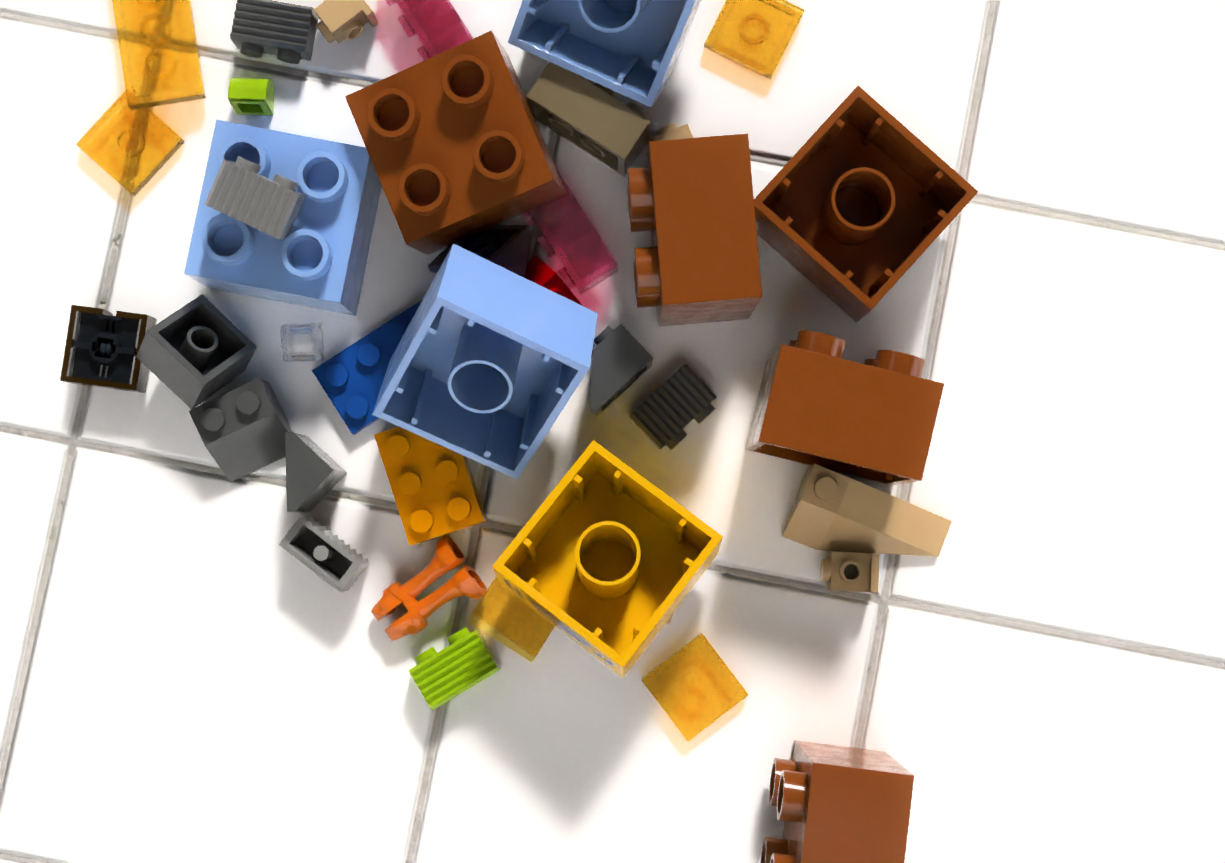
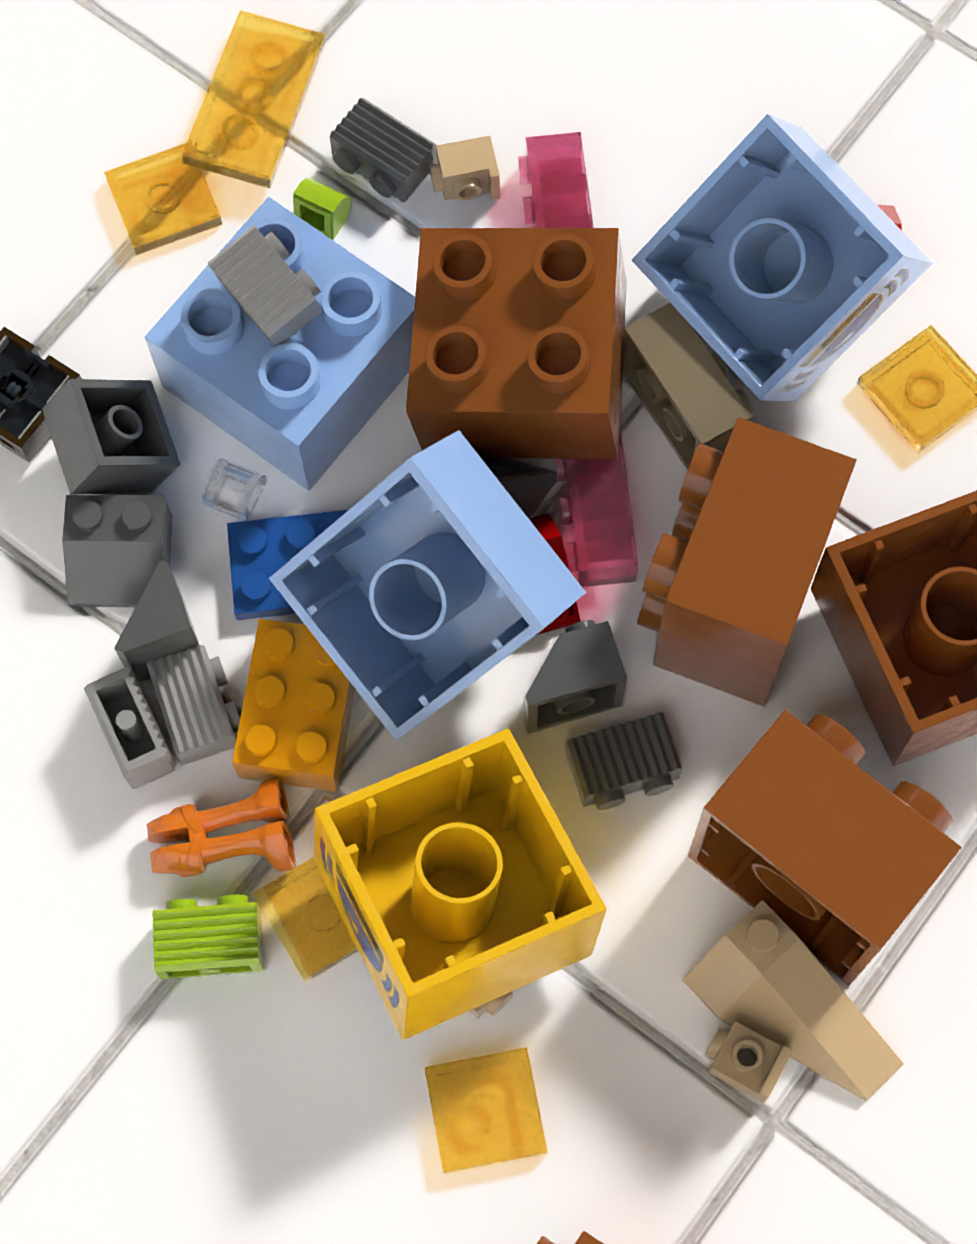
camera: 25 degrees right, 15 degrees down
(359, 512) = (193, 703): none -> light grey brick

